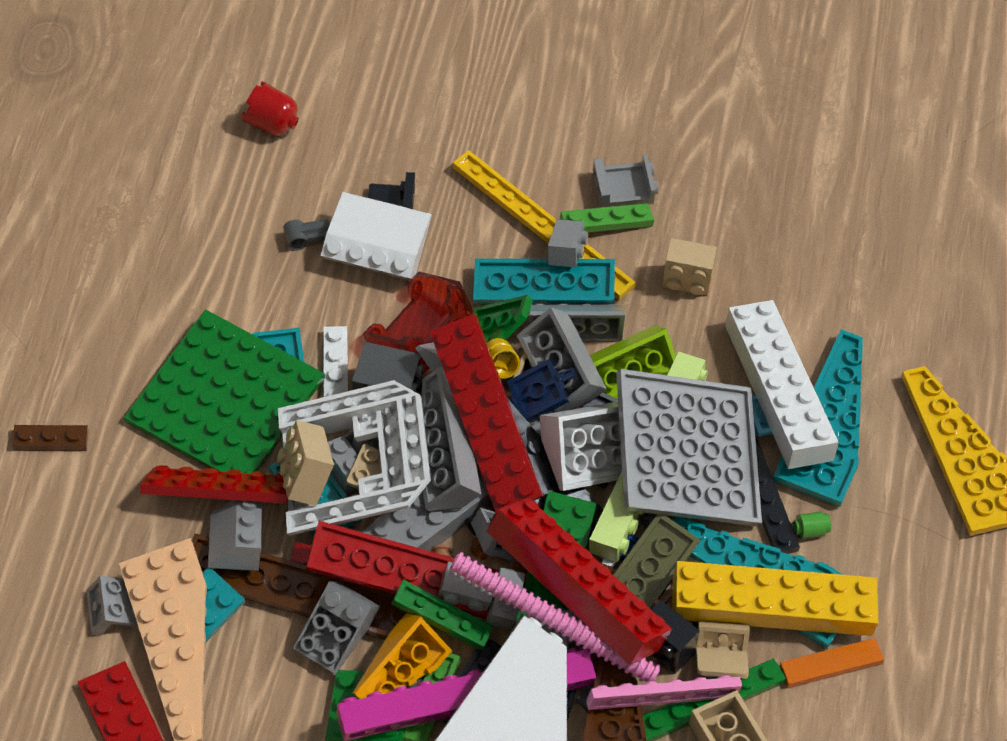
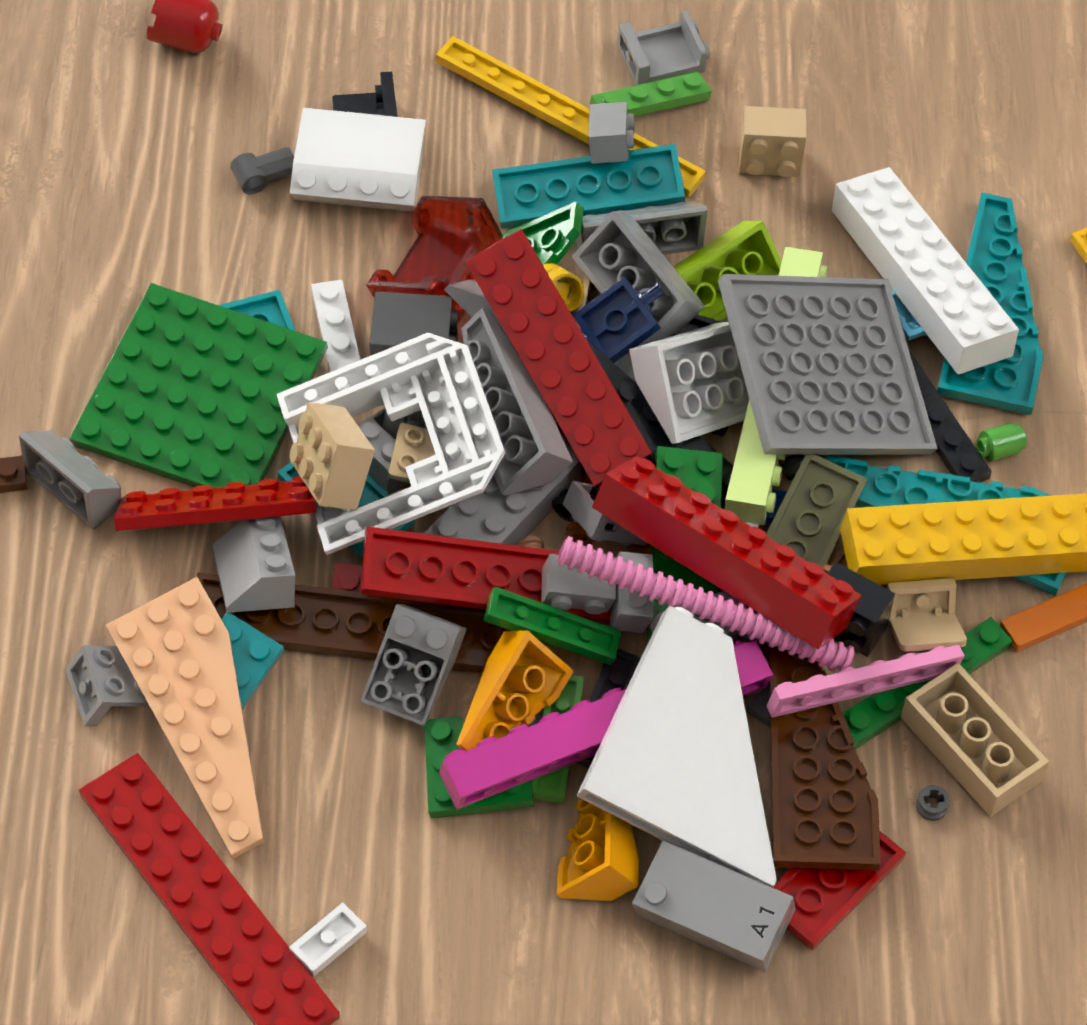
camera: 10 degrees left, 0 degrees up
(118, 446) = (70, 476): none -> light grey slope

